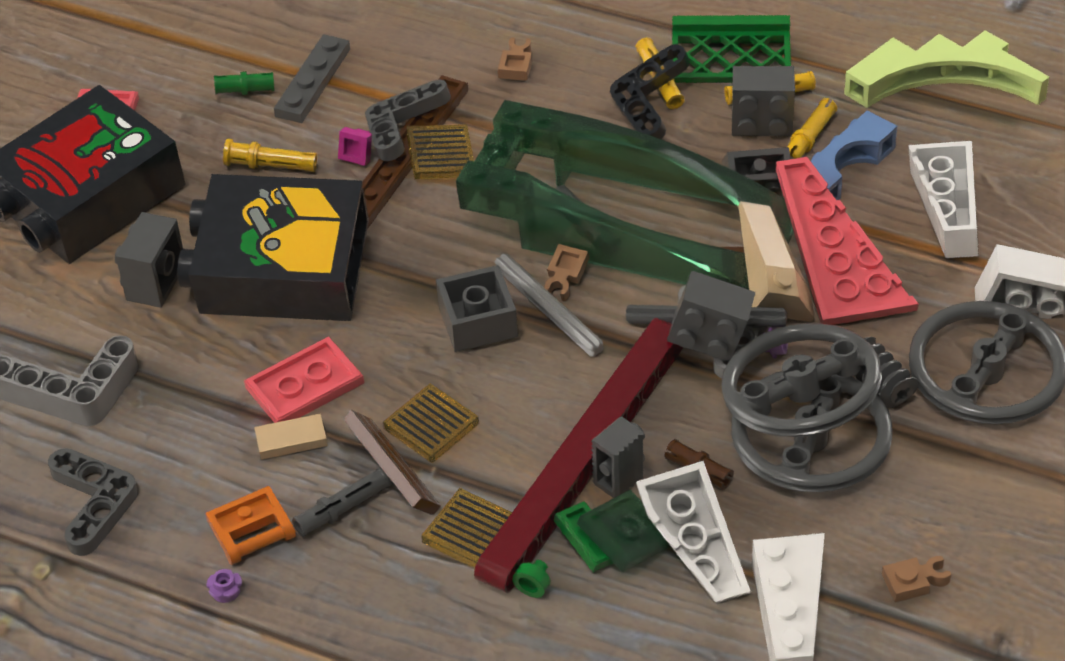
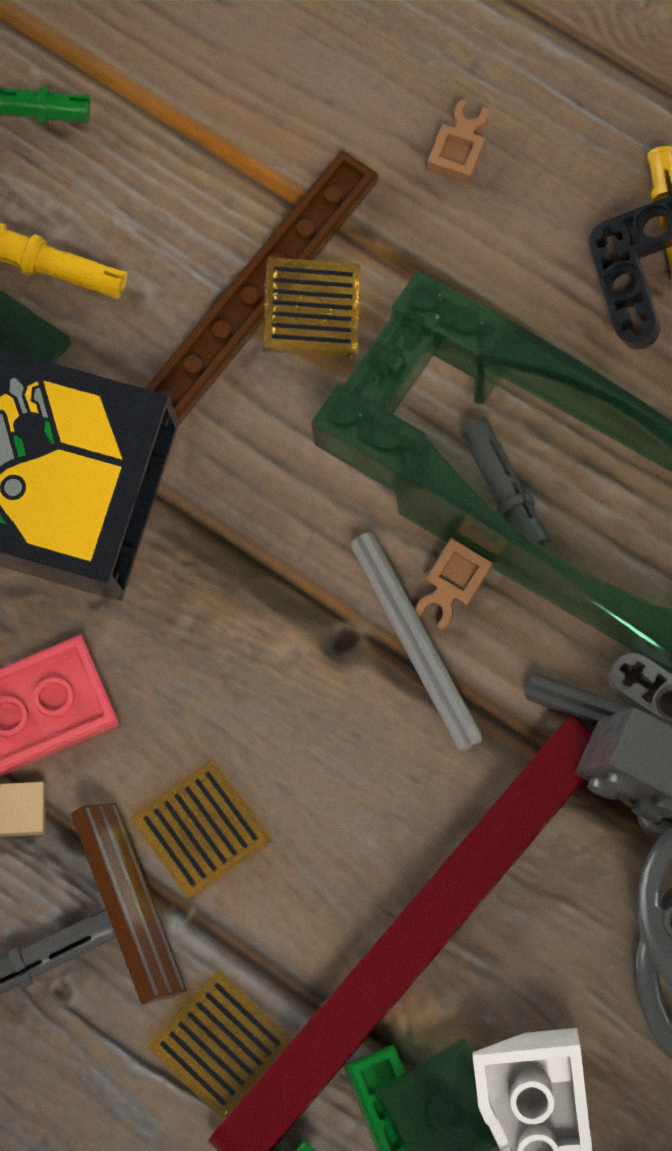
camera: 10 degrees right, 25 degrees up
(312, 78) = (147, 113): dark grey plate -> none
(355, 145) = (186, 268): dark pink tile -> none
(386, 114) = (248, 223): dark grey beam -> none
(477, 308) = (305, 640): dark grey brick -> none
(618, 457) = (459, 984): dark grey brick -> none
(686, 456) = (577, 1001): reddish brown pin -> none

